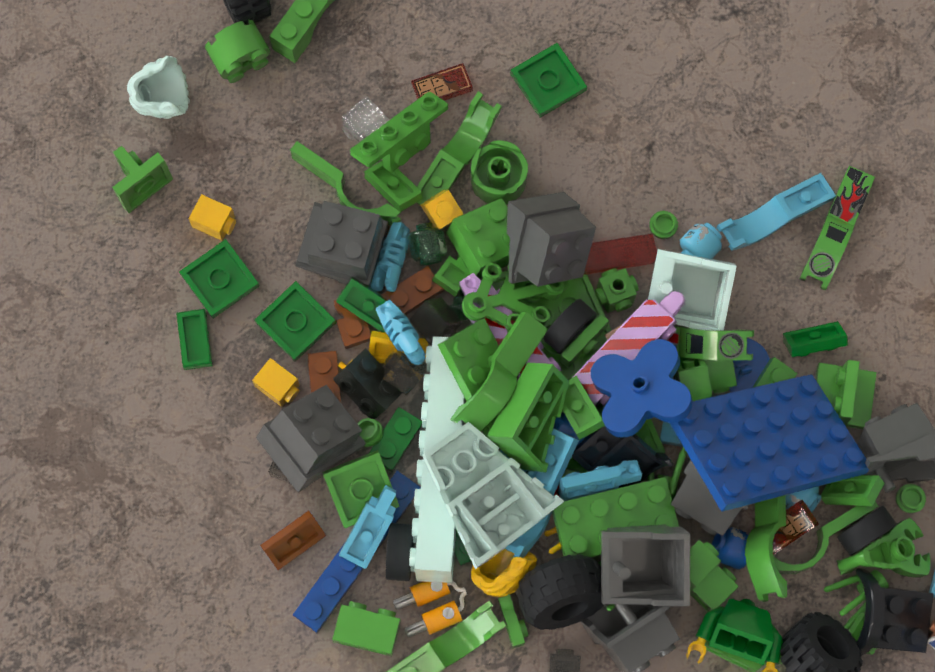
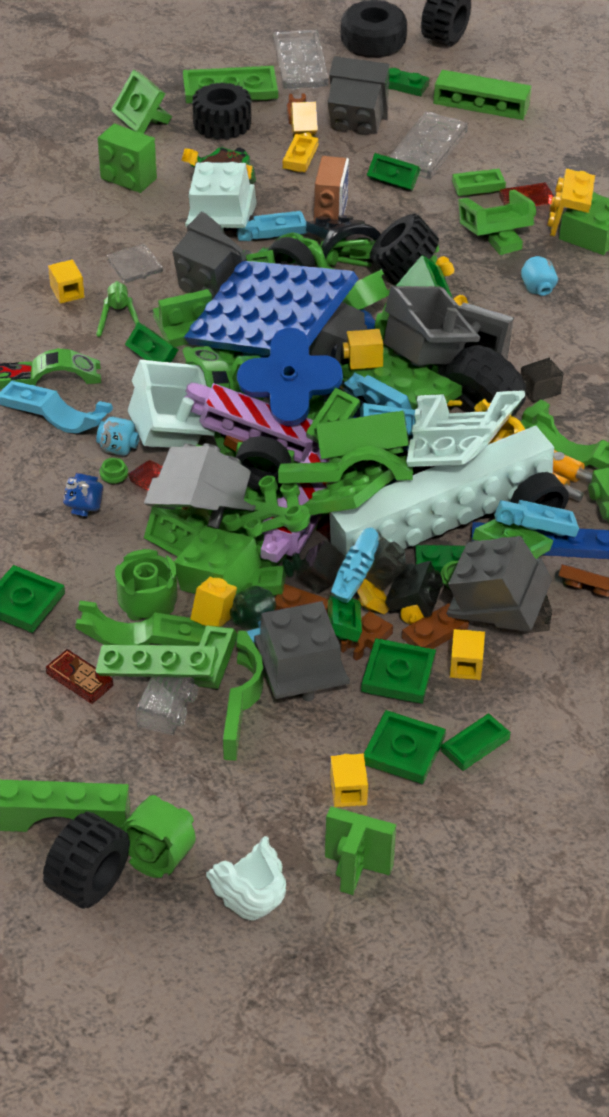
camera: 120 degrees left, 30 degrees down
(638, 177) = (83, 494): none -> blue head
(660, 494) = (363, 349): none -> yellow brick
(911, 346) = (117, 298): none -> bright green plant

